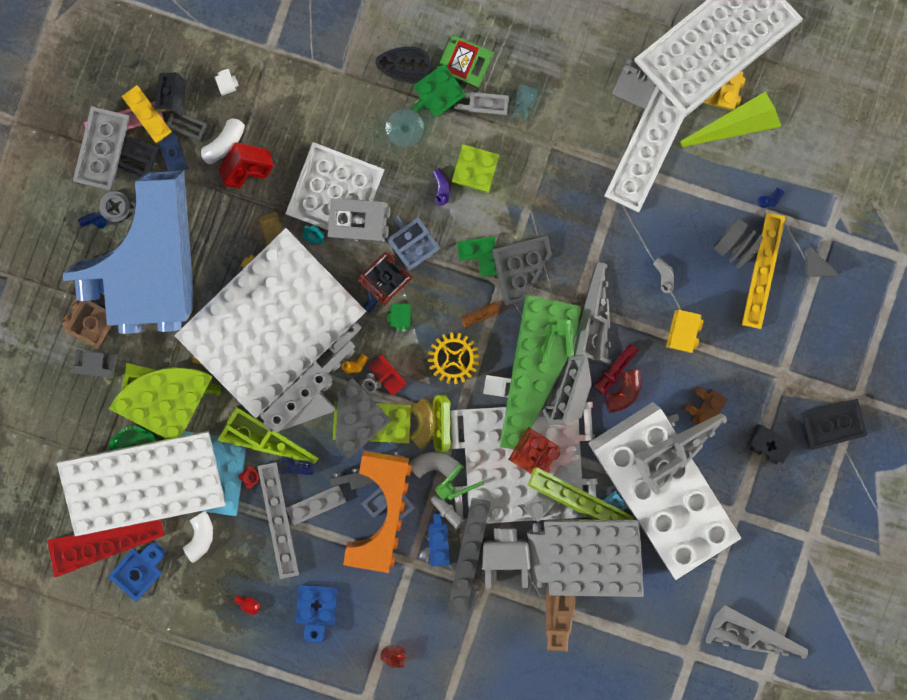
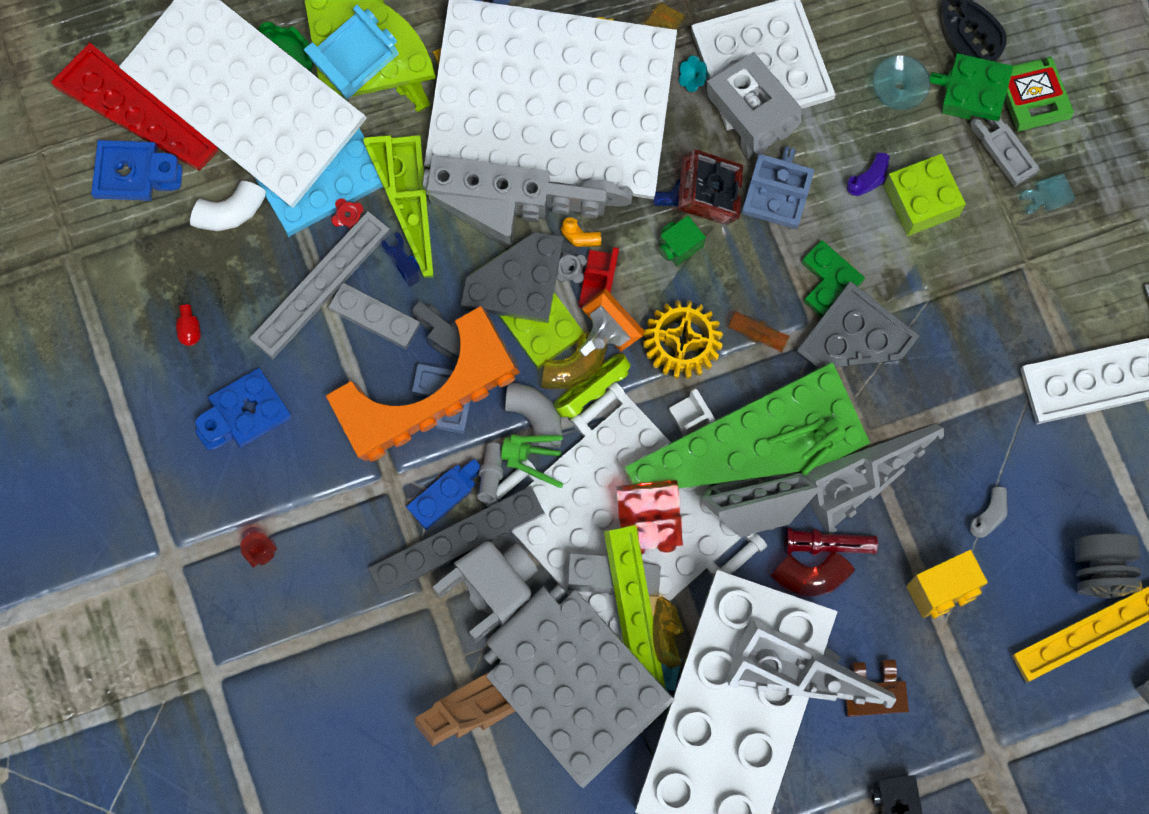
camera: 50 degrees right, 15 degrees down
(167, 411) = (354, 52): none -> medium azure panel
(419, 391) = (610, 324): none -> piece
(593, 487) = (666, 626): none -> clear yellow slope

